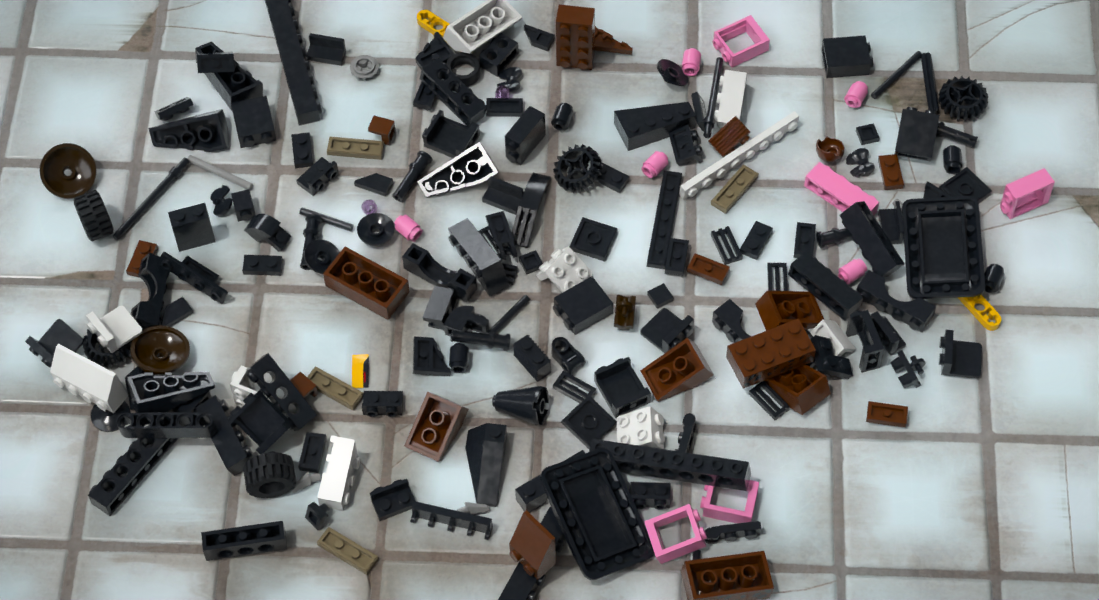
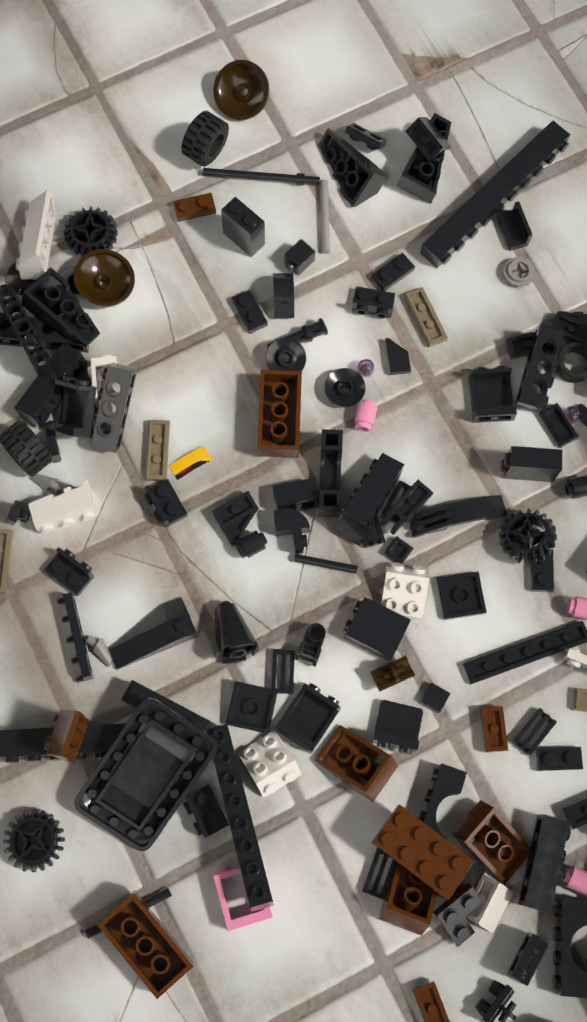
camera: 55 degrees right, 15 degrees up
(57, 334) = (66, 190): black bracket -> none
(114, 328) = (97, 226): white bracket -> none
(148, 312) = (182, 225): black arch -> none
(176, 312) = (156, 268): black tile -> none
(194, 274) = (201, 261): black bracket -> none
(222, 205) = (288, 240): black piece -> none
(253, 121) = (394, 211): black brick -> none
(304, 385) = (137, 421): reddish brown panel -> none
(312, 452) = (78, 471): black plate -> none
(327, 219) = (332, 337): black bar -> none
(382, 127) = (458, 328): reddish brown panel -> none
(415, 169) = (434, 385): black pin -> none
(435, 426) = (166, 565): reddish brown slope -> none
(463, 171) = (458, 431): wedge -> none
(490, 340) = (284, 561): black pin -> none
(503, 195) = (454, 482): black panel -> none
(532, 358) = (289, 613): black brick -> none
(676, 257) = (488, 689): black plate -> none
(683, 548) = (155, 848): bright pink window -> none
(686, 437) = (284, 813): black hinge -> none
(733, 531) = (206, 917): black hinge -> none
(769, 276) = (508, 816): black tile -> none
(861, 324) = (505, 946): black panel -> none

